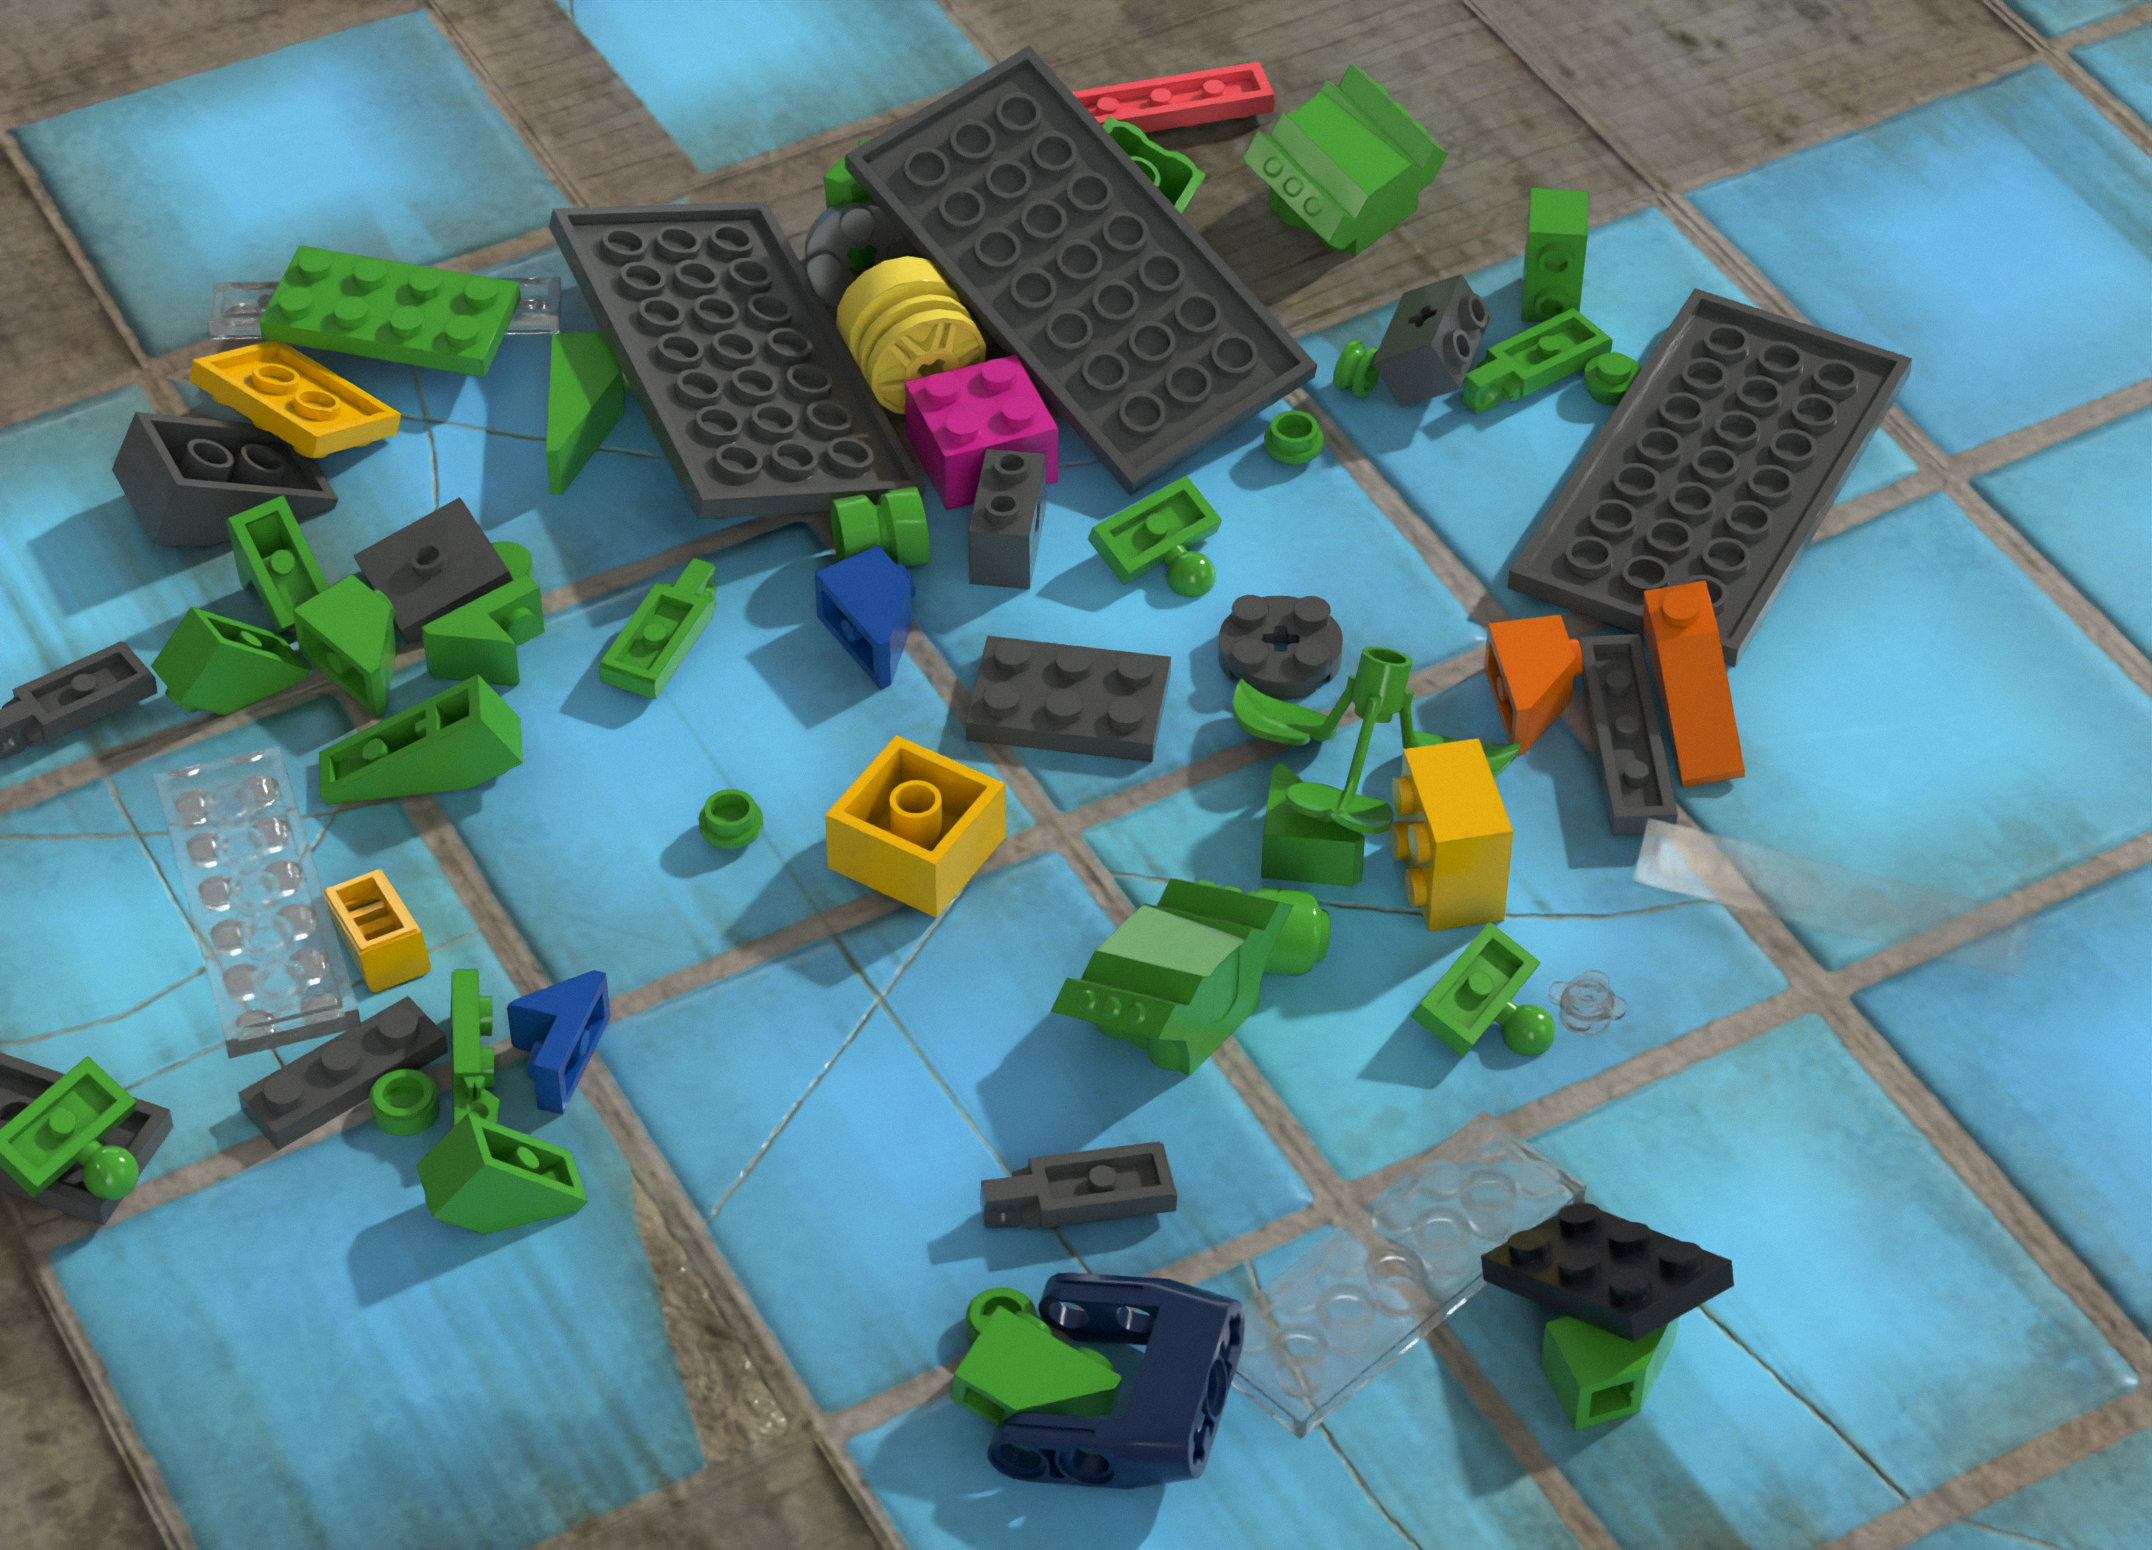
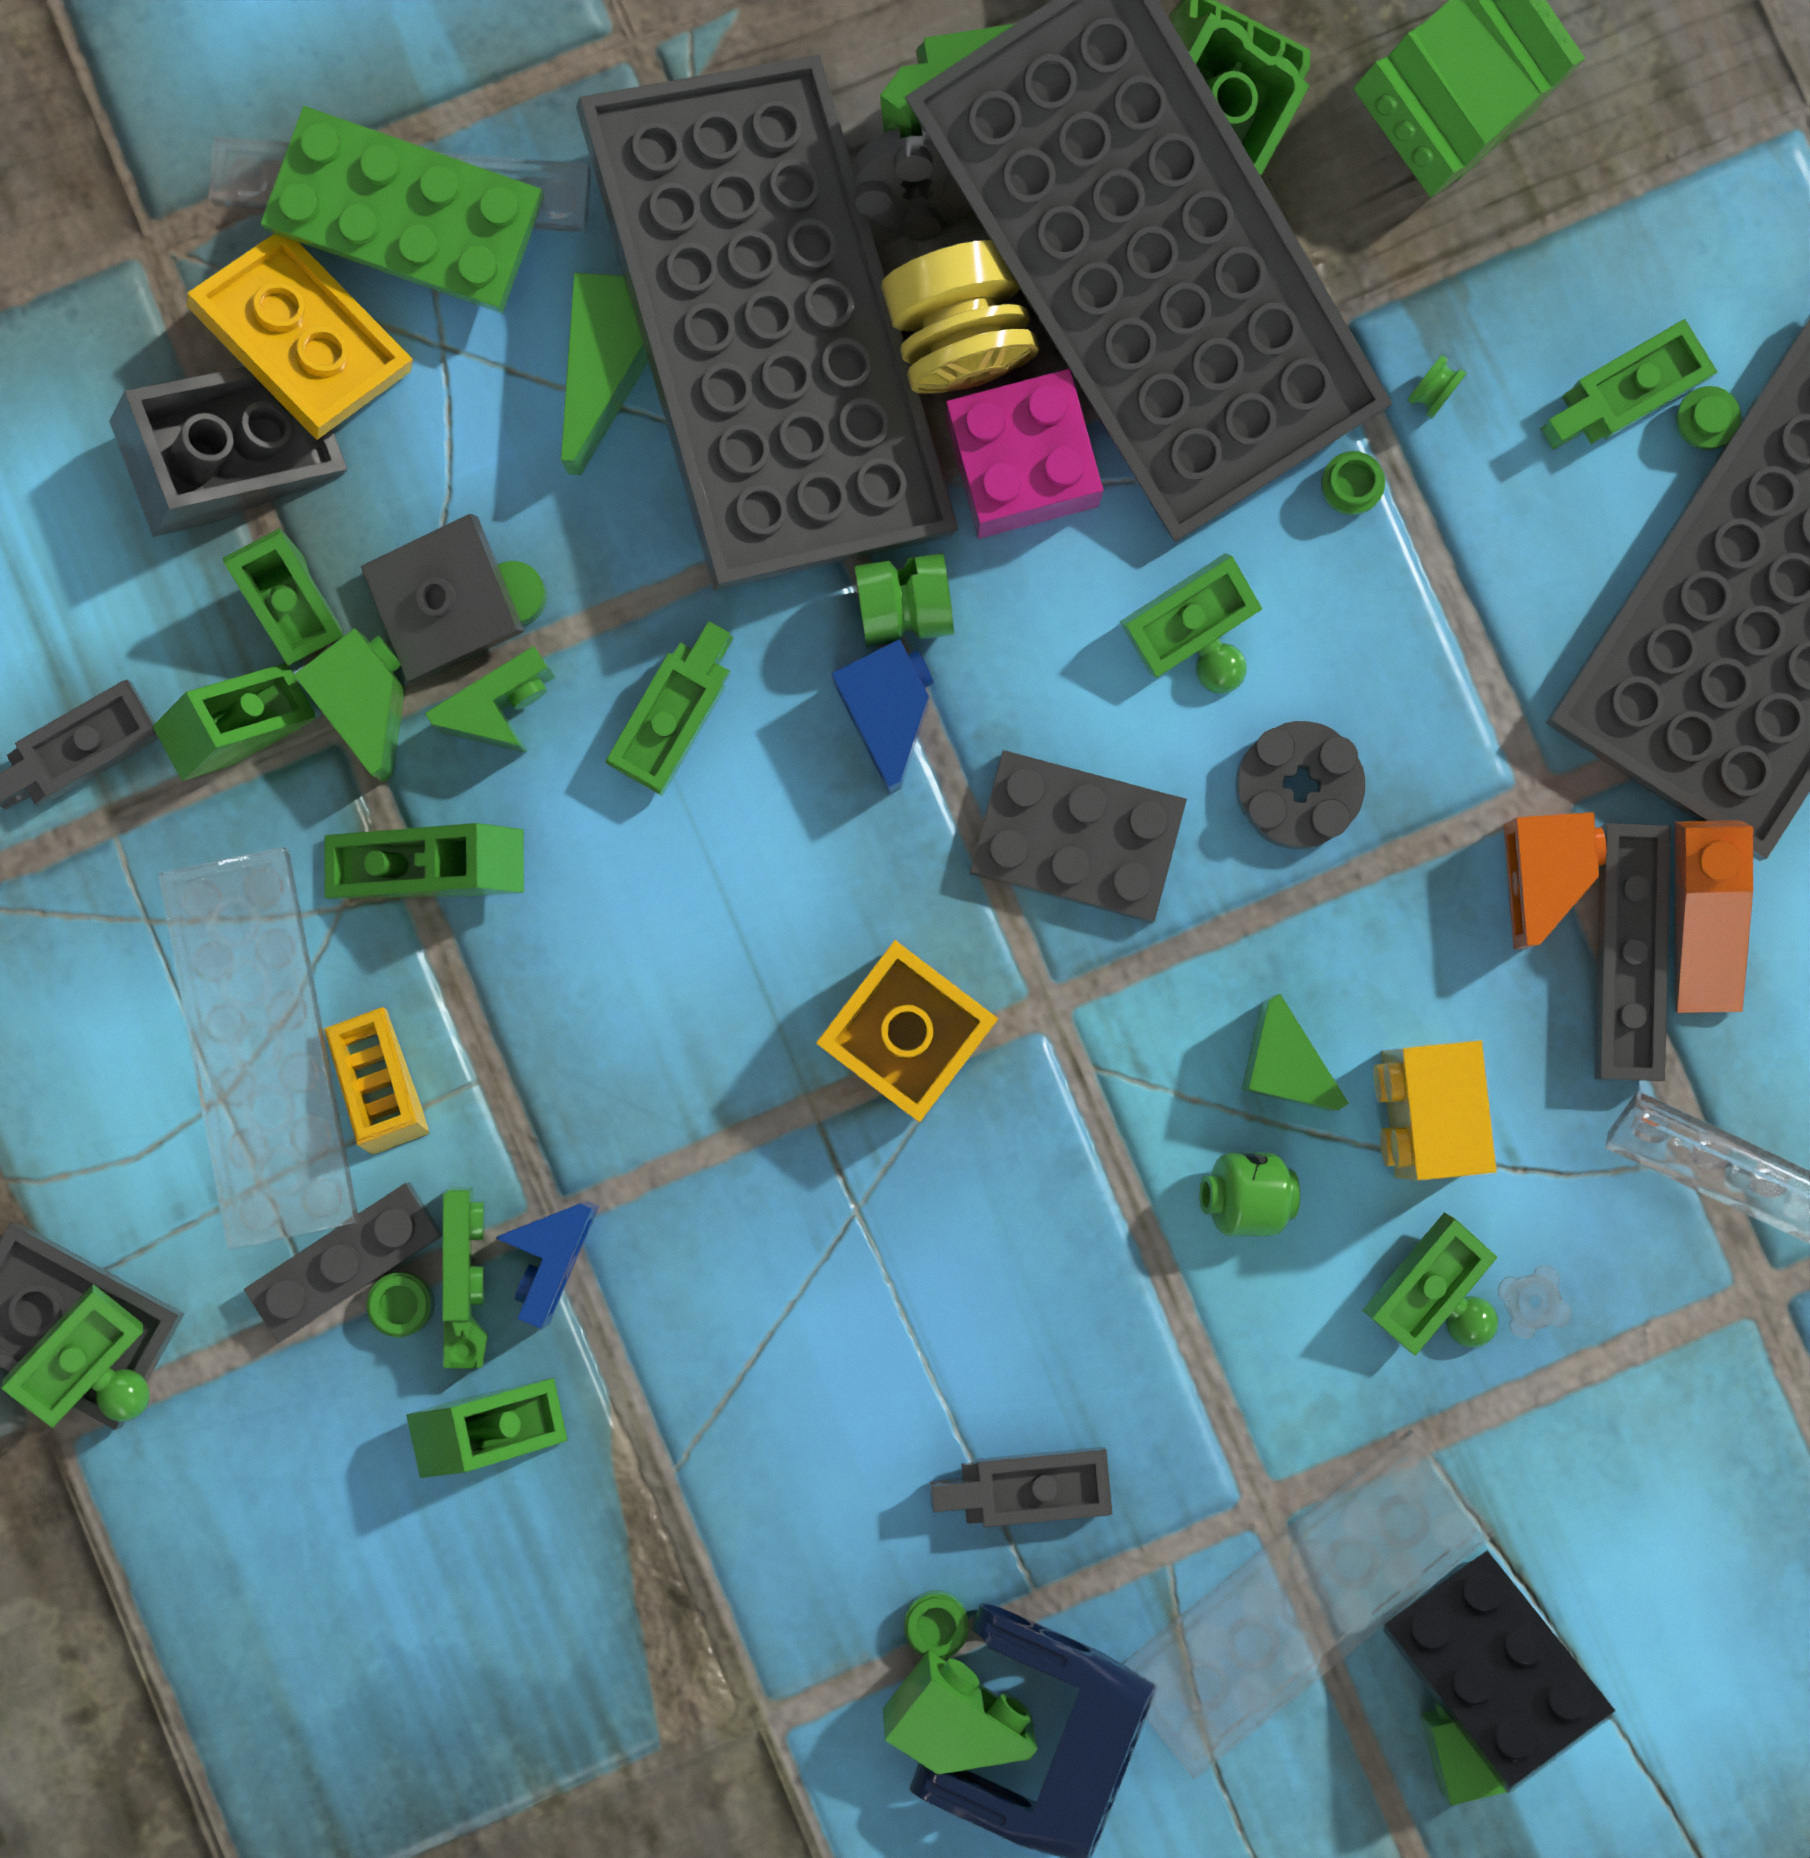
camera: 10 degrees right, 40 degrees up
(730, 819) = (727, 978): bright green plate -> none
(1007, 519) = (1039, 589): dark grey brick -> none
(1179, 972) = (1140, 1257): bright green slope -> none
(1378, 694) = (1456, 969): bright green plant -> none
(1431, 340) = (1522, 366): dark grey brick -> none
(1554, 253) = (1677, 255): bright green brick -> none

